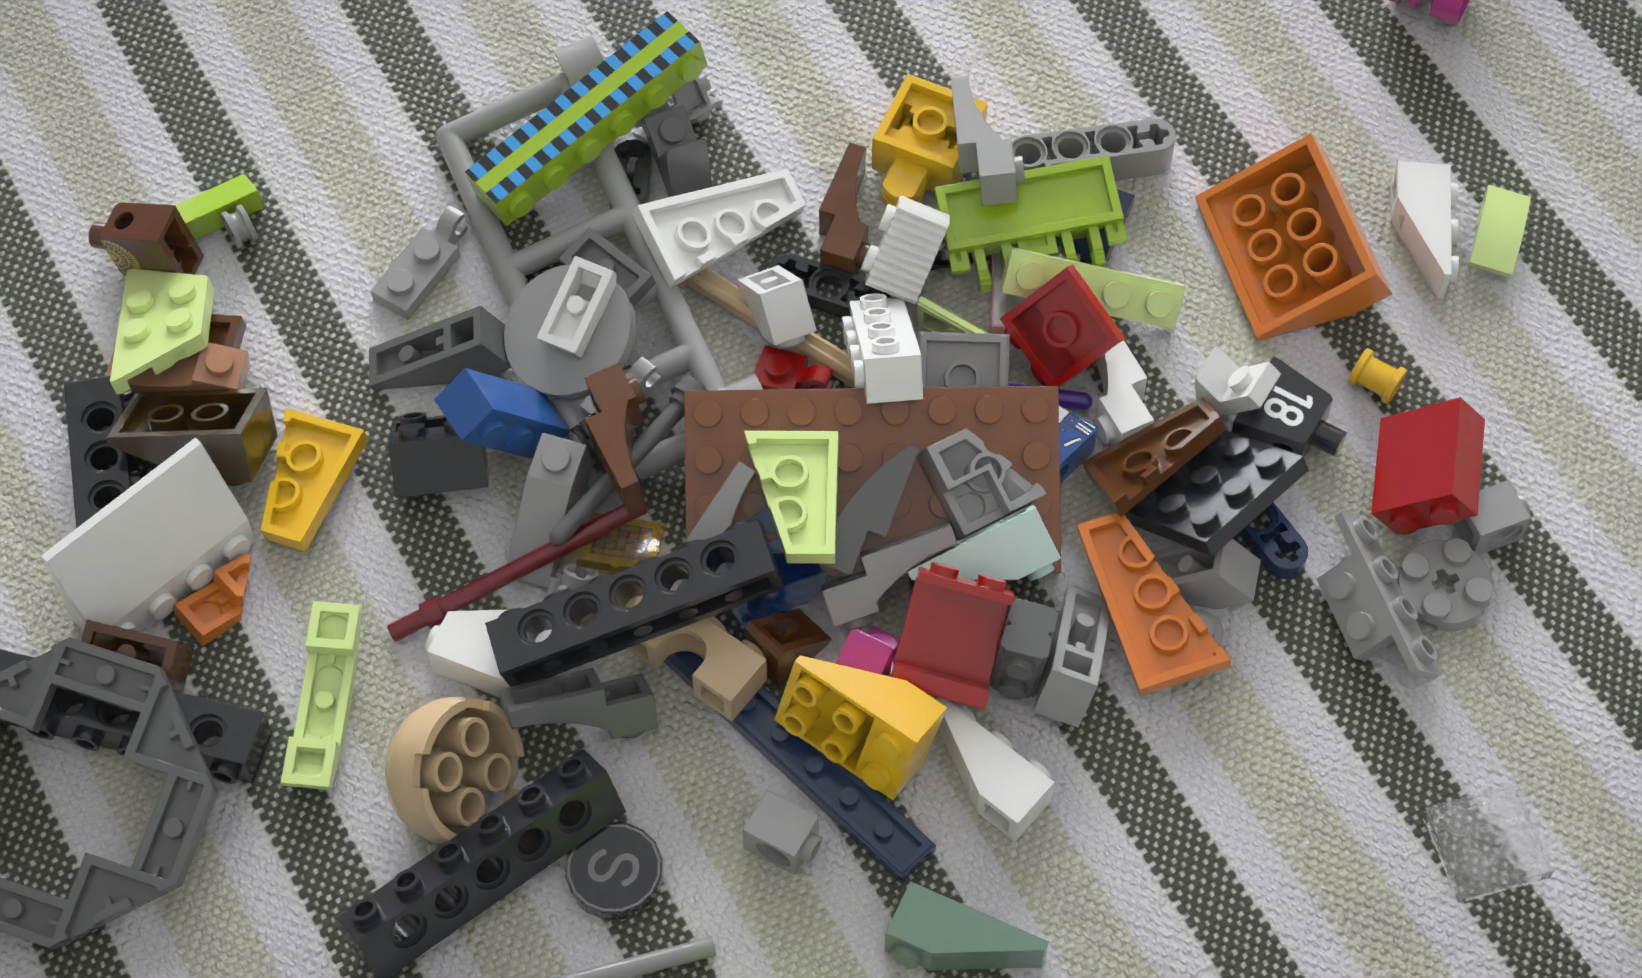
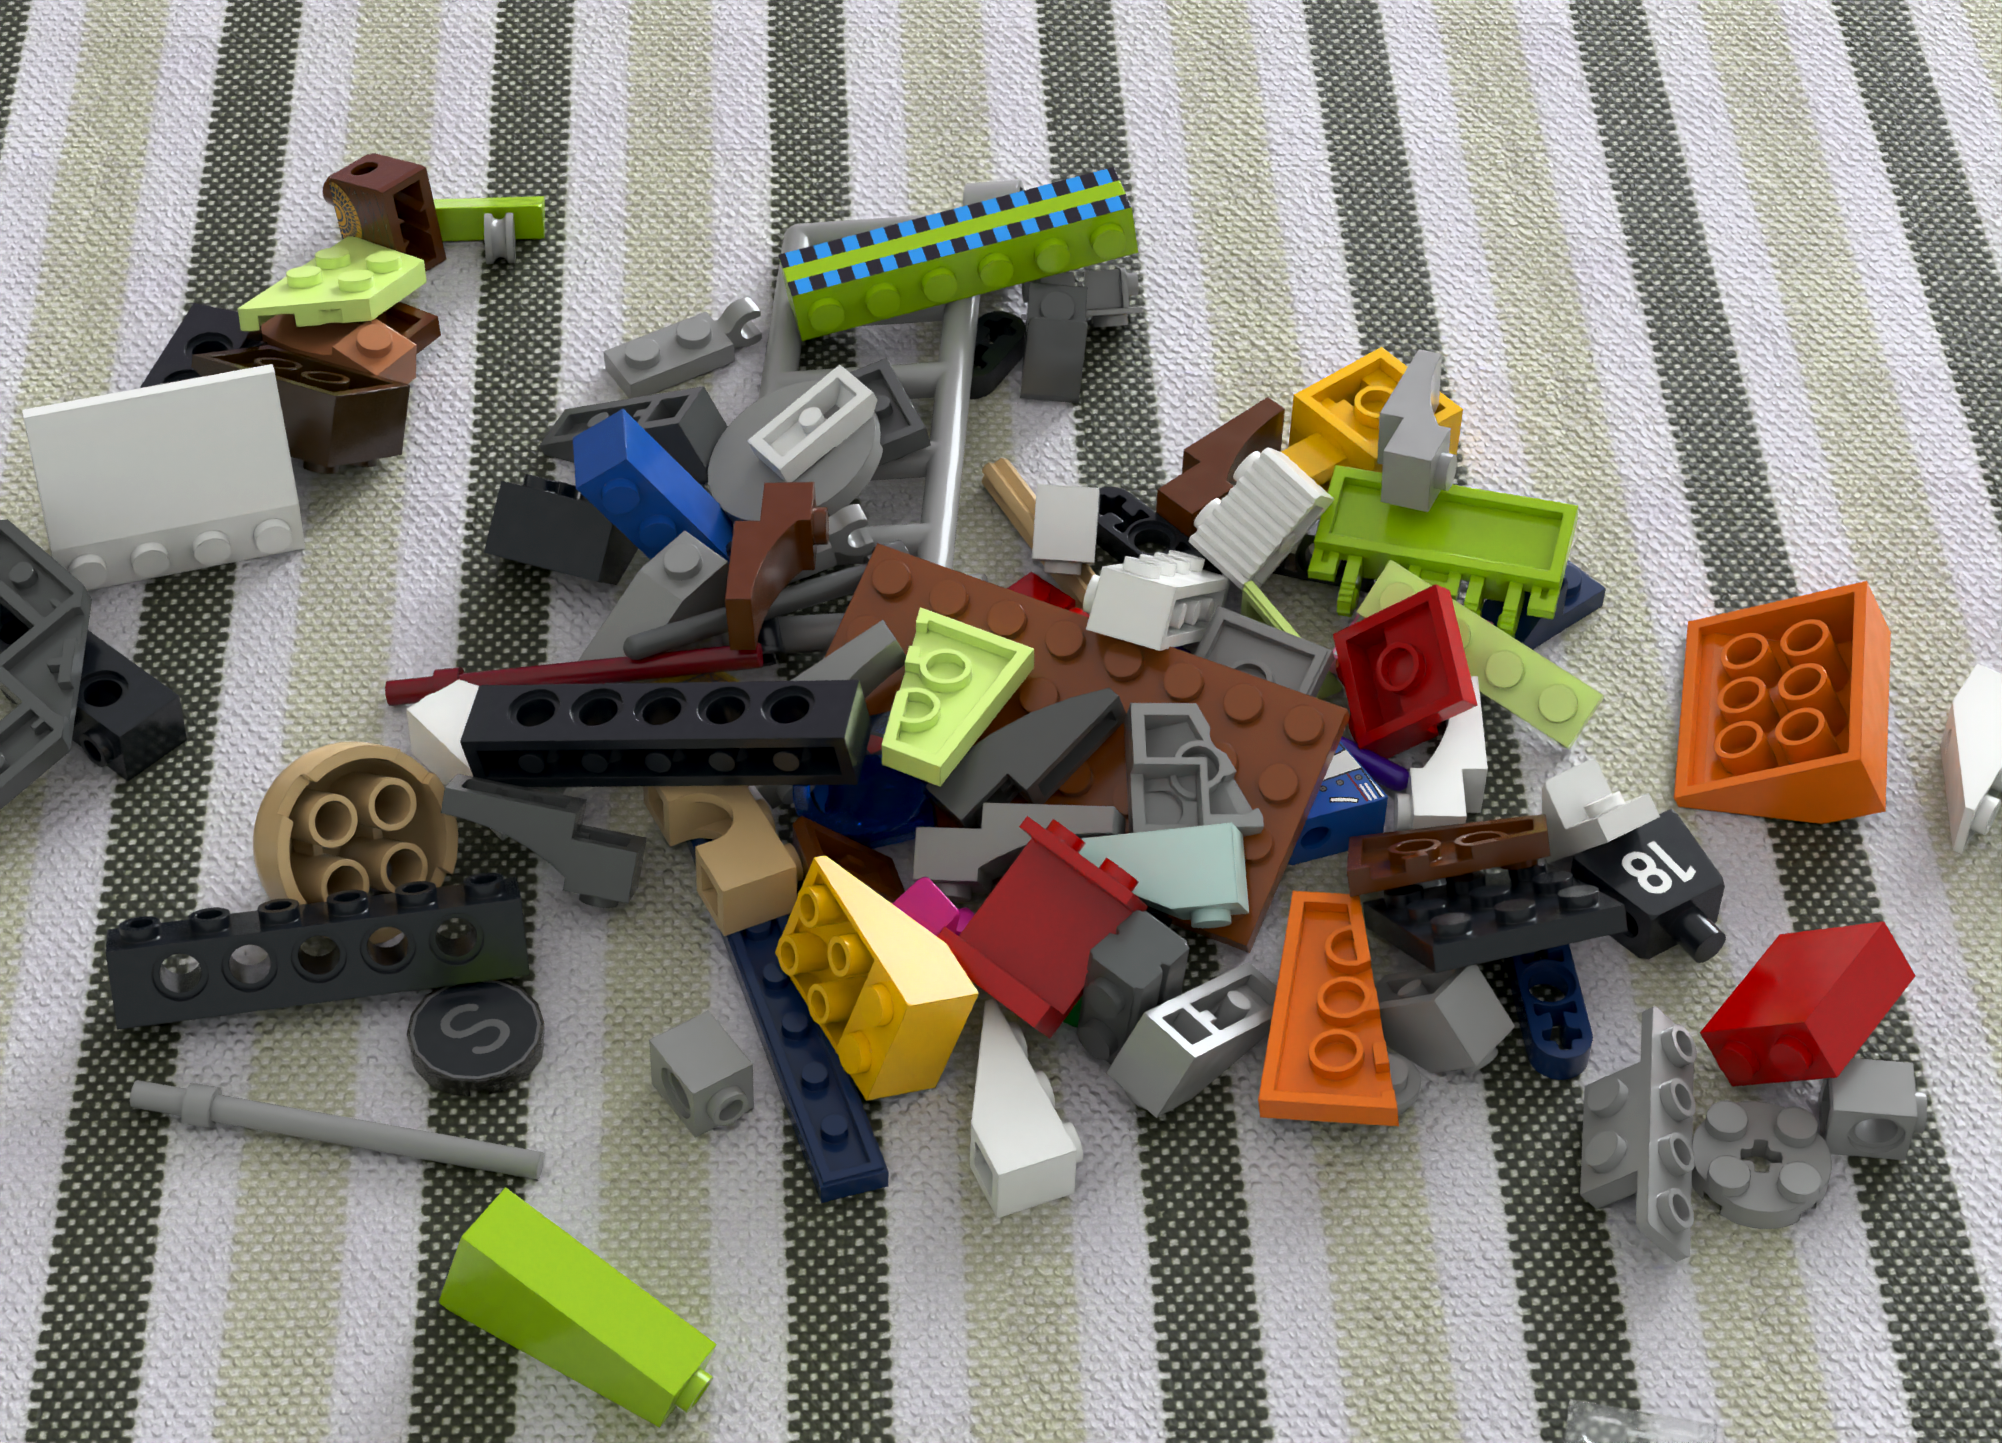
camera: 25 degrees right, 15 degrees down
(168, 654) = (117, 605): reddish brown slope -> none
(217, 605) = (218, 590): orange slope -> none
(308, 477) = (406, 503): yellow wing -> none
(325, 696) = (270, 723): yellowish green slope -> none
(711, 223) = (1040, 417): white wing -> none
(952, 936) = (843, 1278): sand green slope -> none
(1137, 146) = (1613, 530): light grey beam -> none
(1377, 376) = (1808, 892): yellow bush -> none

